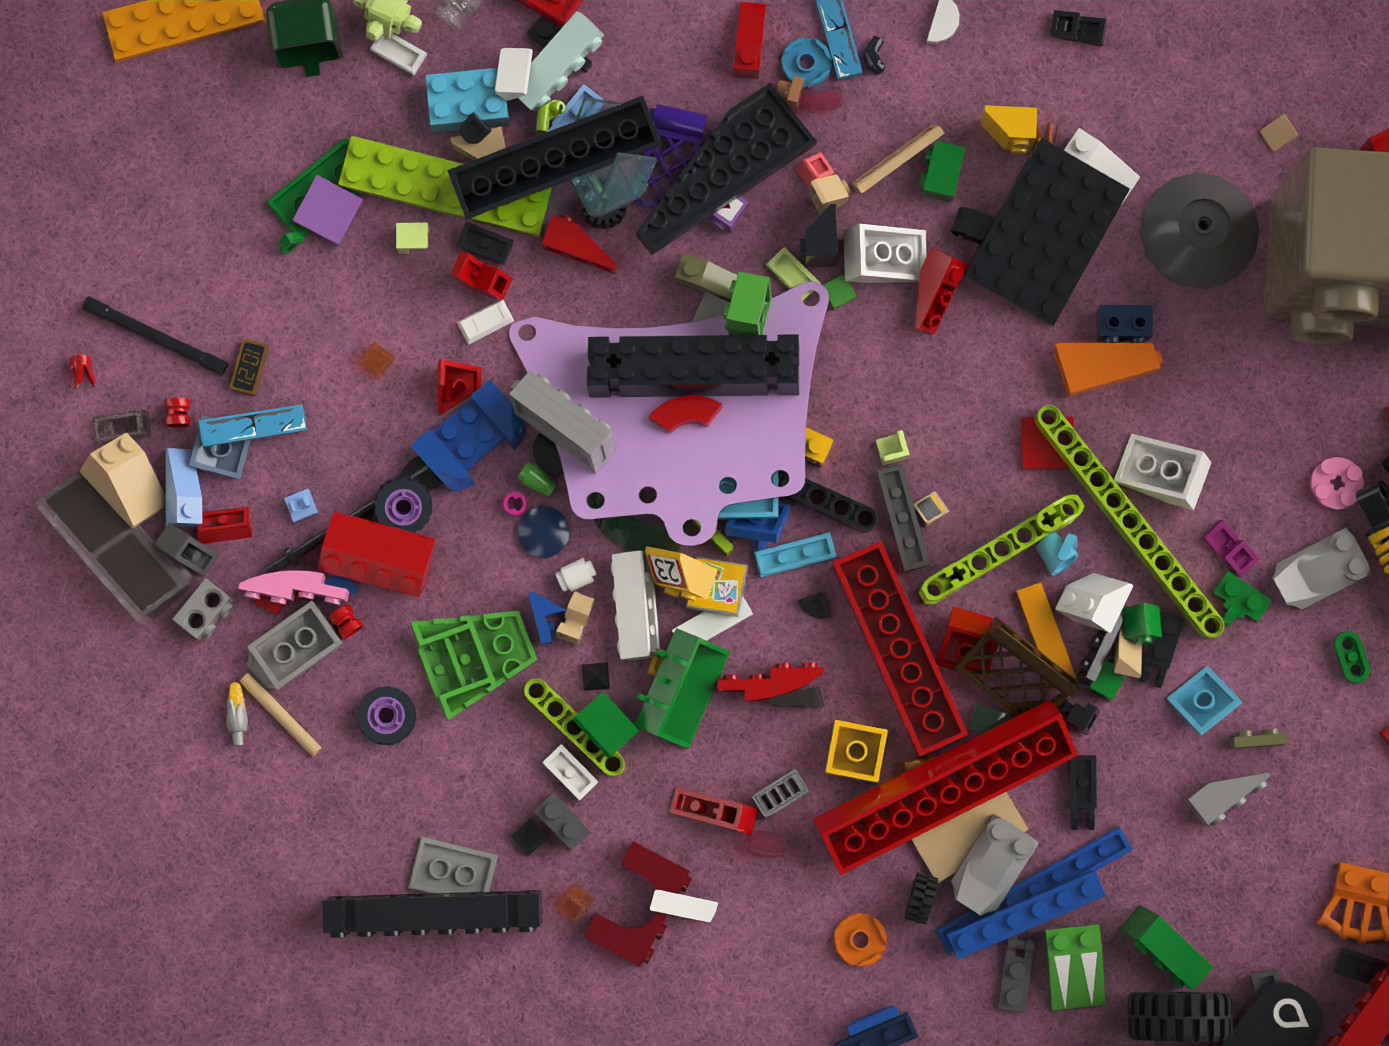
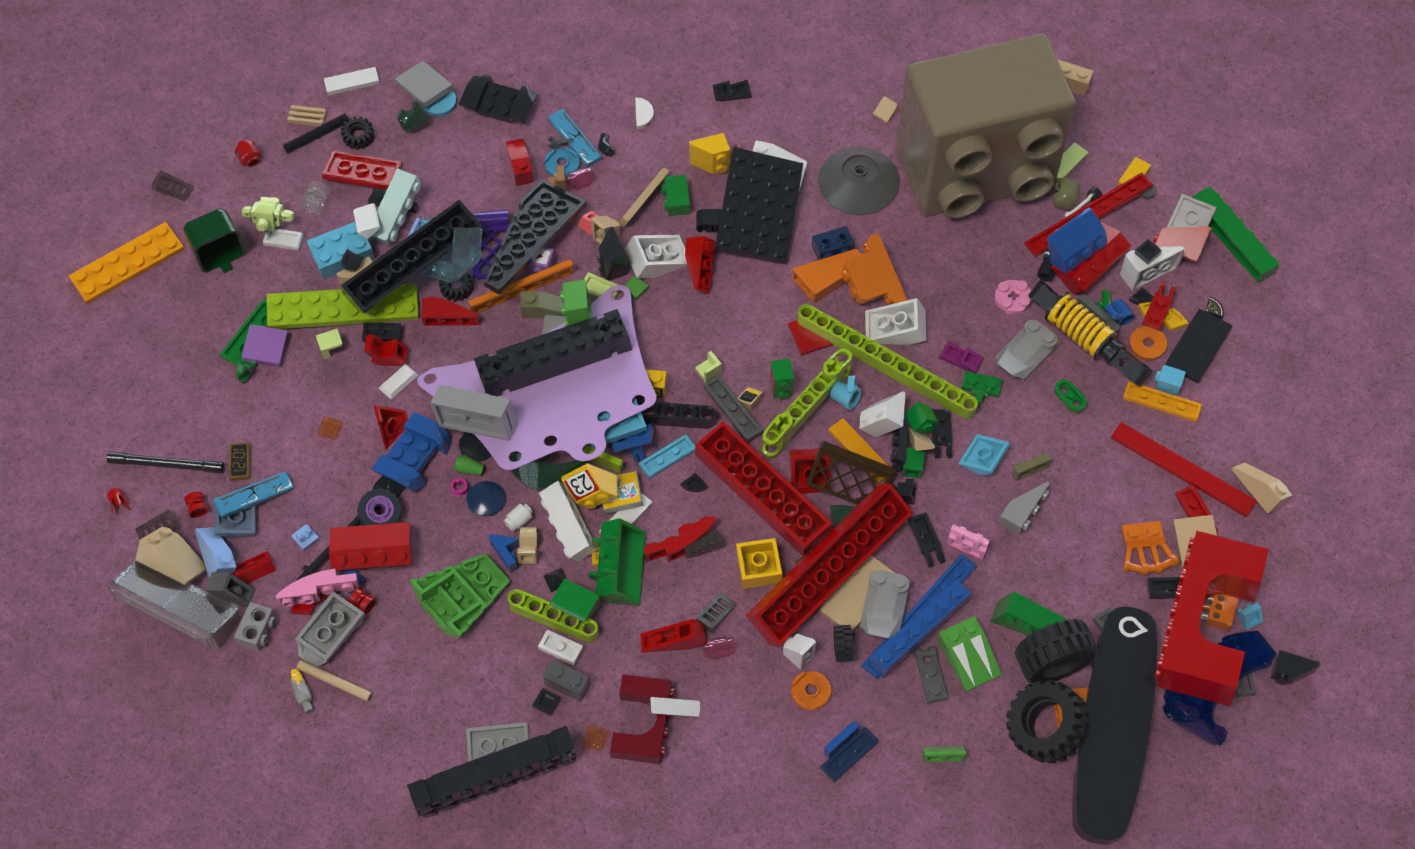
camera: 20 degrees left, 20 degrees down
(374, 703) = (410, 642): black wheel -> none
(547, 113) = (399, 236): lime arm -> none
(685, 410) = (557, 382): red tile -> none
(695, 239) = (526, 284): none -> orange tile
(809, 28) = (556, 143): none -> dark grey hand
(863, 885) = (799, 650): none -> white slope
(980, 503) = (781, 378): none -> green brick
(1132, 818) = (968, 542): none -> bright pink plate
(1159, 393) = (873, 275): none -> orange brick

